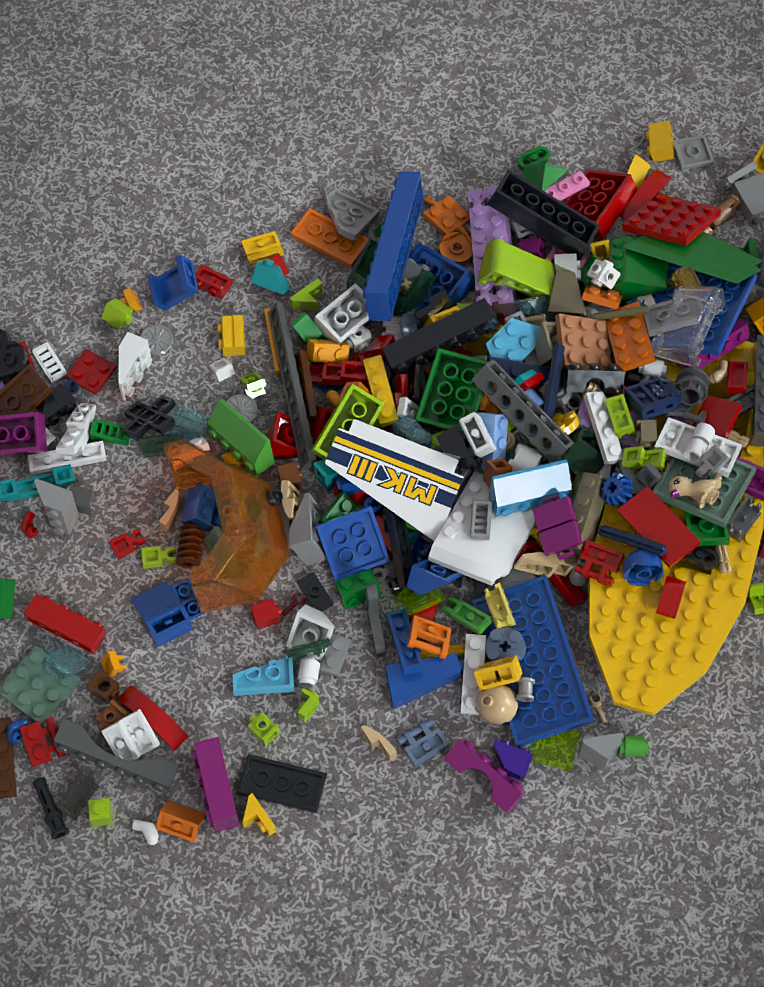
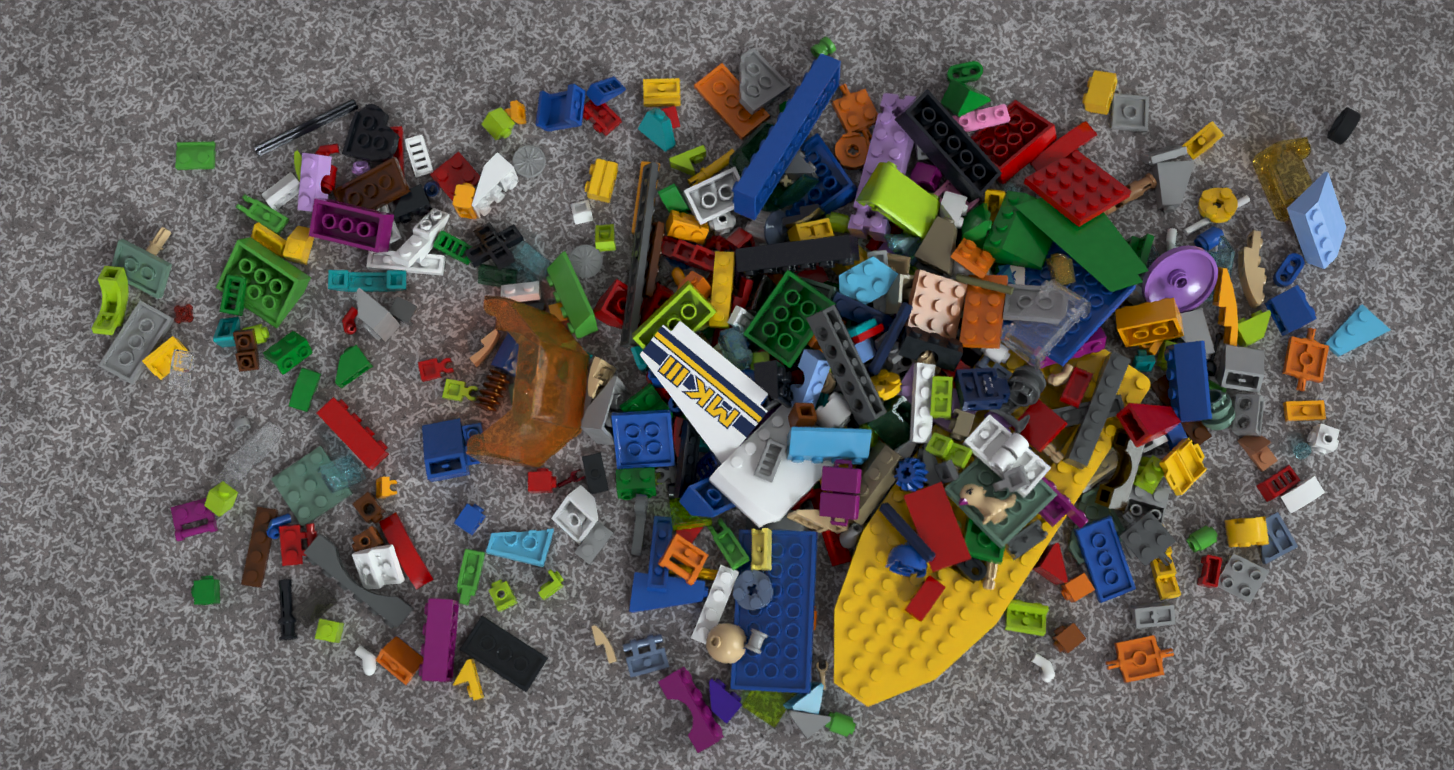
camera: 15 degrees right, 15 degrees up
(44, 563) = (351, 366): none -> green slope
(109, 386) = (463, 200): none -> light orange brick
(206, 667) = (470, 518): none -> blue brick
(208, 259) = (602, 91): none -> blue slope
(224, 719) = (470, 574): none -> bright green hinge
(274, 496) = (582, 371): black plate -> none
(289, 472) = (609, 347): dark orange brick -> none
(300, 651) = (568, 531): clear green plate -> none
(308, 672) = (562, 553): white brick -> none
(339, 290) = (712, 169): none -> yellow pin
(398, 166) = (825, 47): none -> bright green wheel
(477, 434) = (794, 375): white brick -> none
(498, 672) = (735, 617): yellow brick -> none
(593, 729) = (807, 702): none -> medium azure slope
(599, 273) = (982, 234): white brick -> none
(602, 557) = (873, 536): red plate -> none
(638, 170) = (1065, 119): yellow slope -> none

